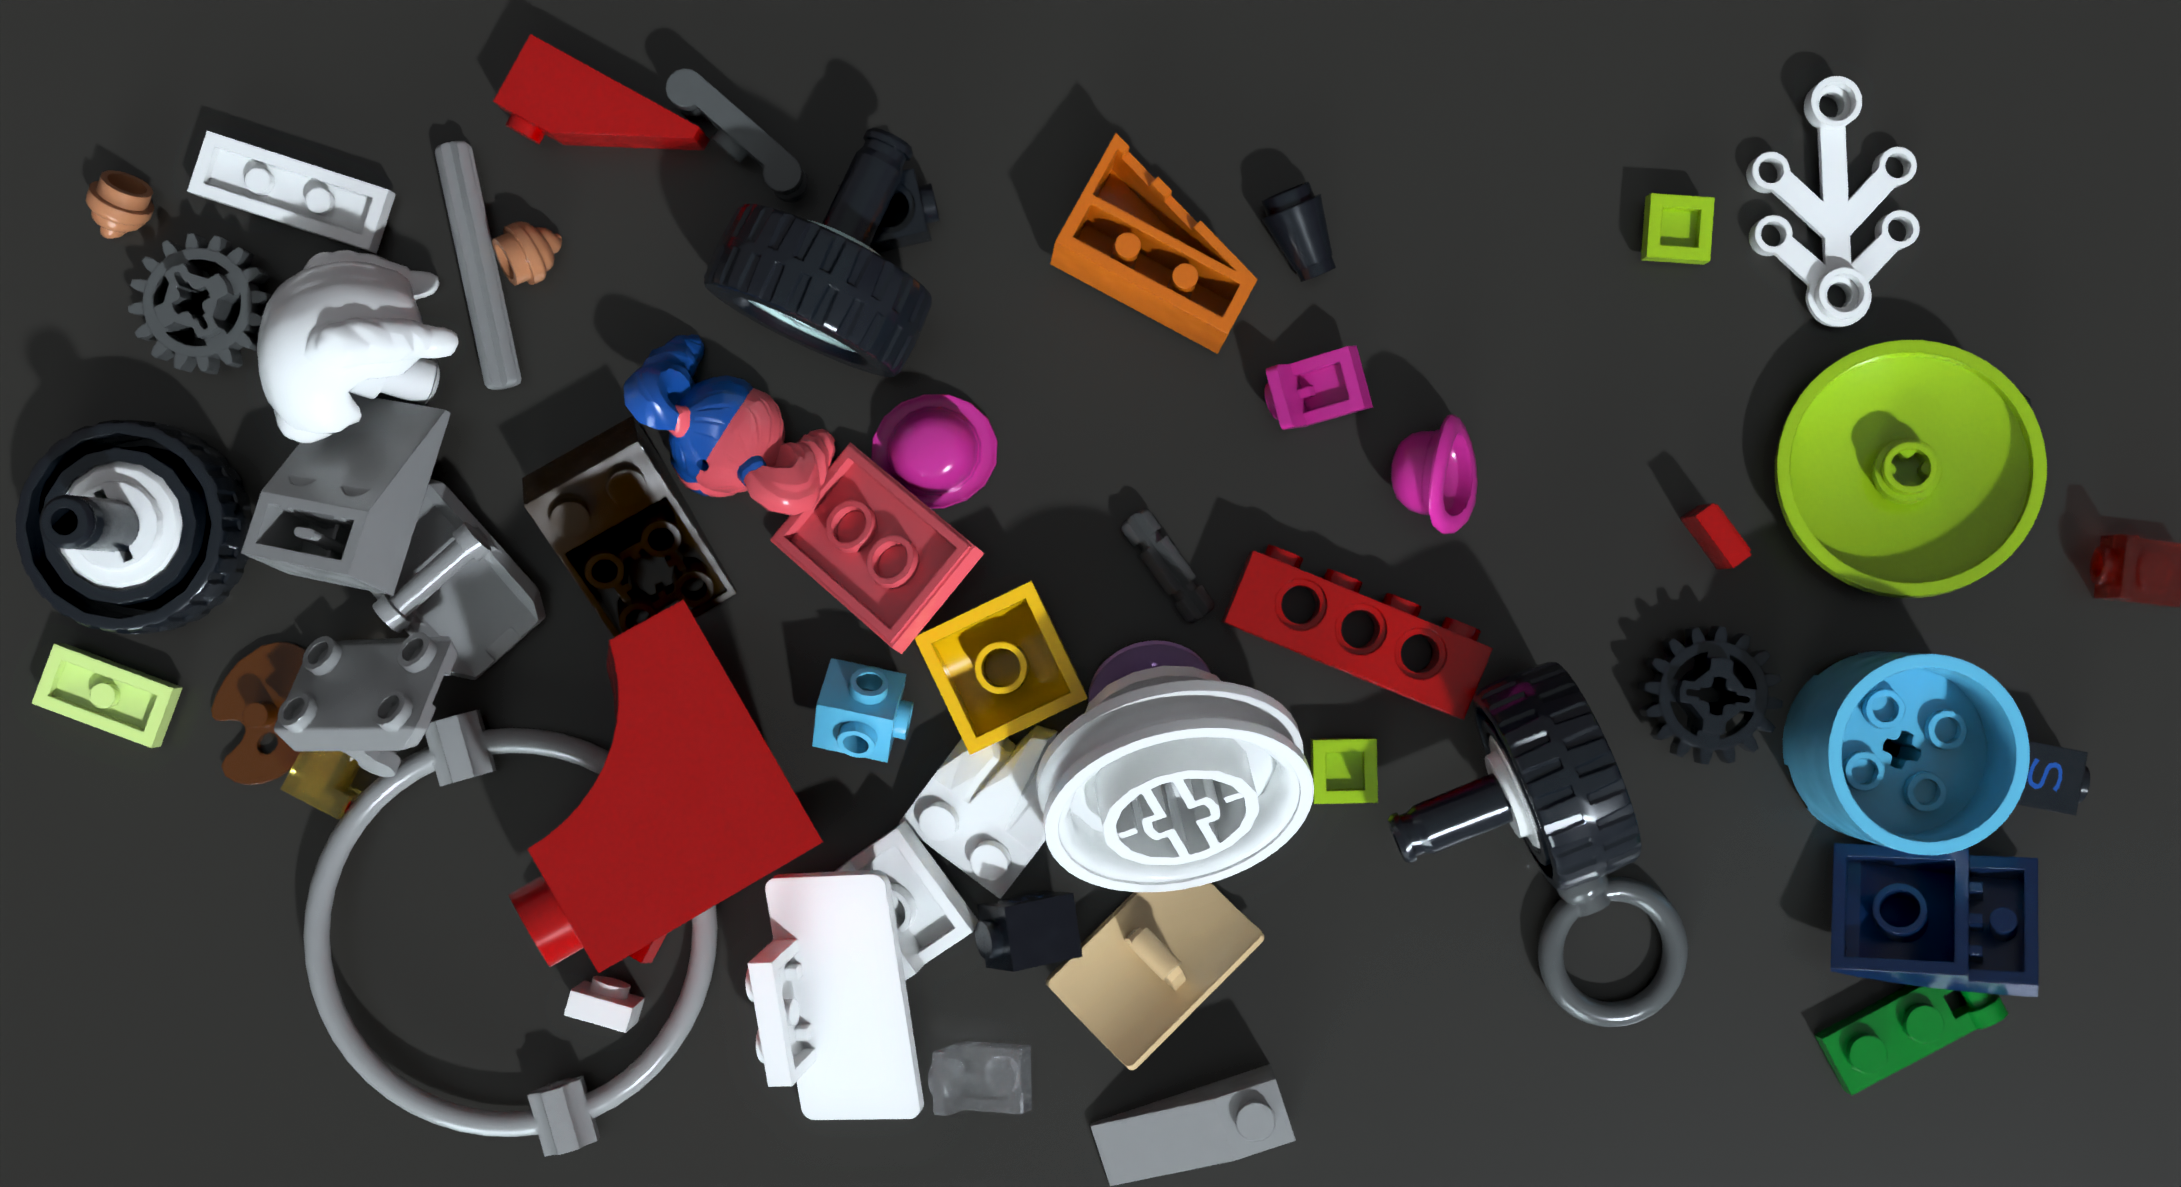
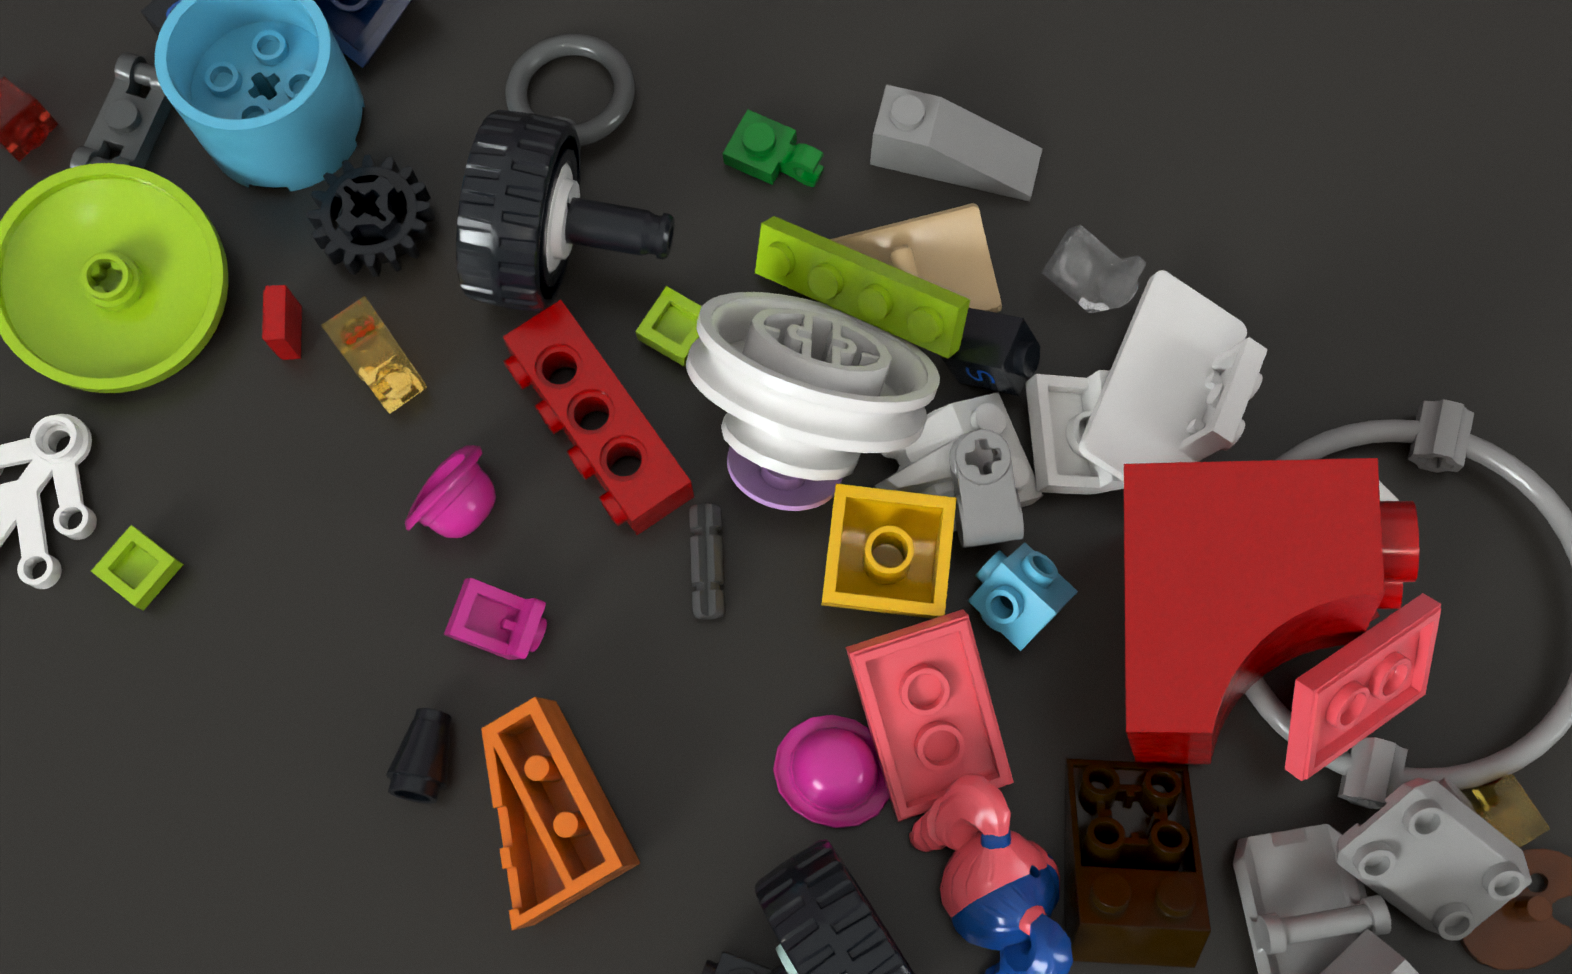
camera: 145 degrees left, 15 degrees down
(508, 809) = (1361, 687): none -> coral tile
(946, 774) = (988, 502): none -> light grey piece
(1189, 913) = (862, 286): none -> lime plate
(1380, 1012) = (768, 147): none -> green plate
(1603, 559) = (374, 354): none -> clear yellow leg
(2023, 638) = (125, 120): none -> dark grey plate

